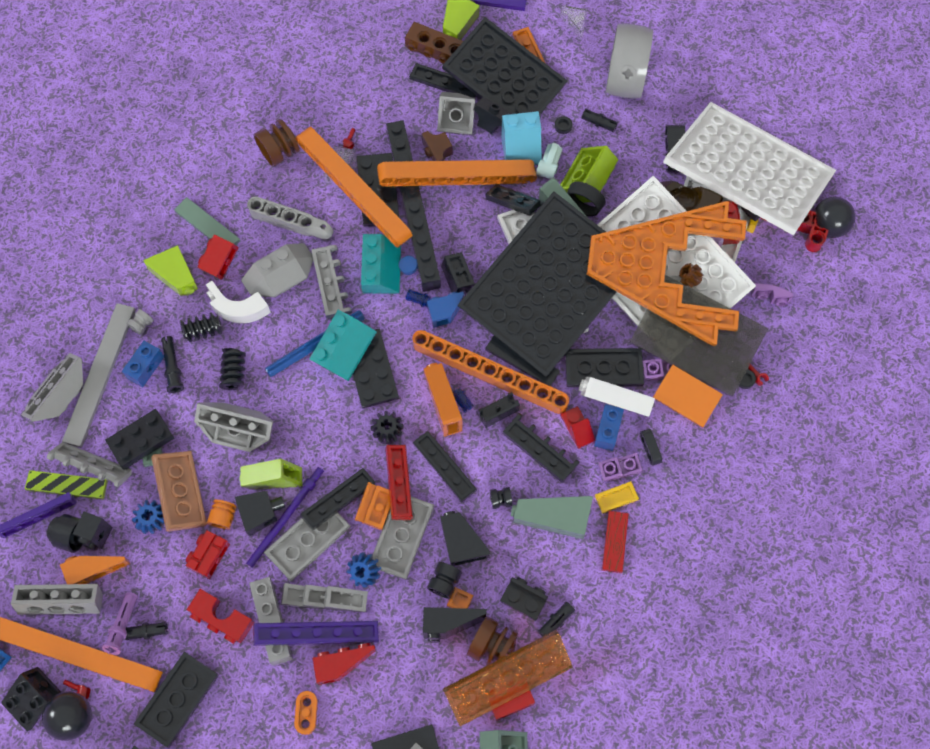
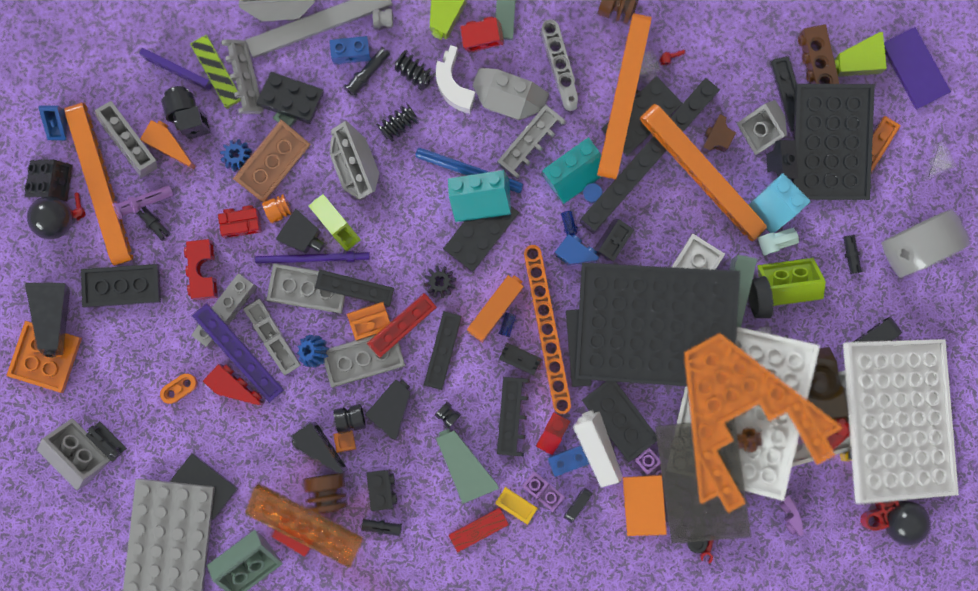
camera: 55 degrees right, 15 degrees up
(513, 199) = (715, 236): black plate -> none
(563, 125) = (824, 226): black tile -> none

